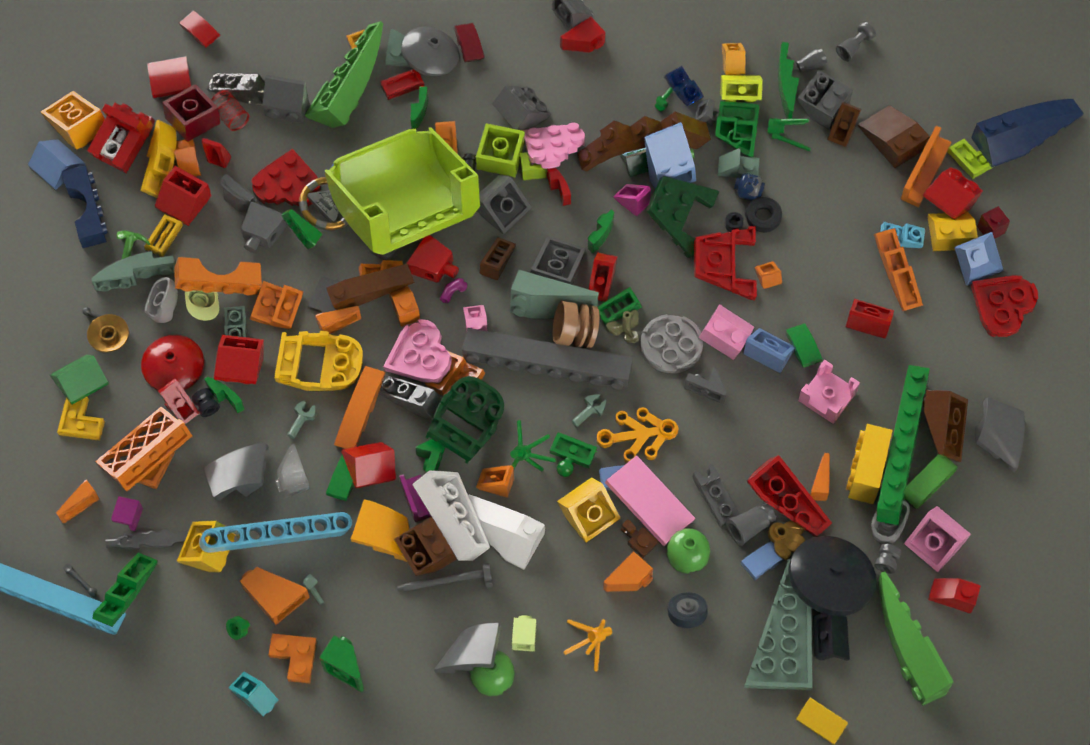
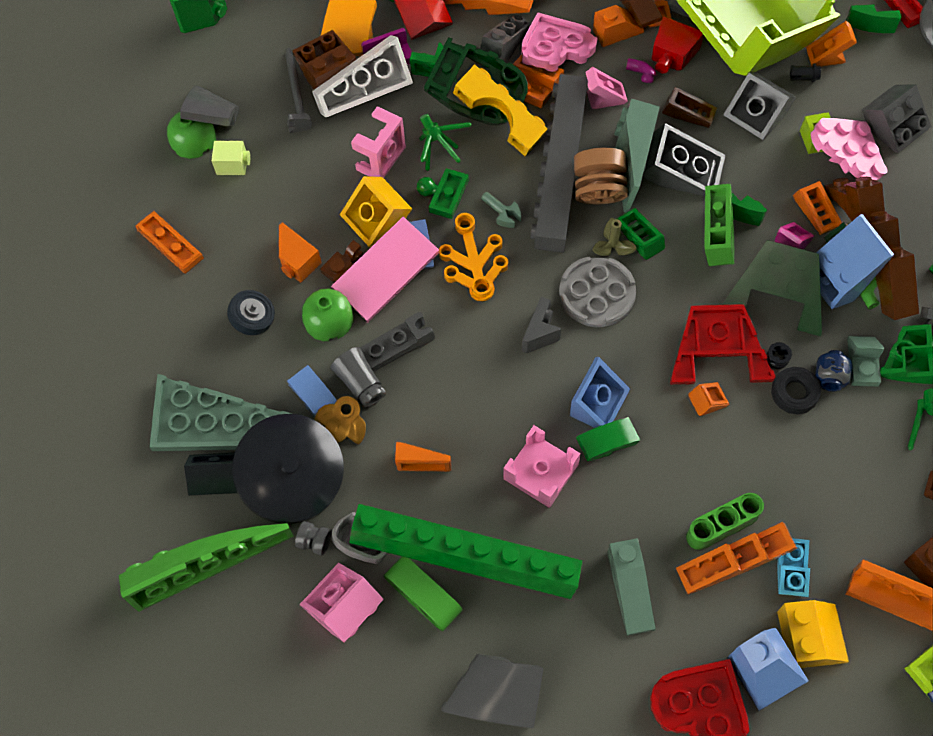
camera: 90 degrees right, 0 degrees up
(496, 480) = (411, 124): orange slope -> none
(500, 150) = (830, 91): lime brick -> none
(508, 531) = (335, 147): white wedge -> none
(516, 385) = (479, 89): none -> yellow arch
(523, 489) = (386, 147): none -> bright pink panel
(557, 181) = (788, 165): red slope -> none
(592, 184) = (821, 197): none -> orange slope
(595, 636) = (226, 222): light orange plant -> none
(602, 275) = (677, 210): red slope -> none
(607, 688) = (169, 242): none -> orange tile
(622, 244) = (719, 225): none -> bright green slope
(726, 332) = (619, 344): bright pink slope -> none
(785, 493) = (397, 412): red wedge -> none
(822, 721) = (113, 462): yellow slope -> none
(868, 463) = (437, 504): yellow brick -> none
(869, 318) = (660, 520): red slope -> none
(870, 264) = (734, 512): none -> bright green beam
(918, 339) = (631, 586): none -> sand green slope
(947, 420) = (498, 610): reddish brown slope -> none
(953, 193) = (867, 631): red slope -> none
(955, 593) = (263, 622): red slope -> none
(994, 221) = (830, 693): dark red brick -> none

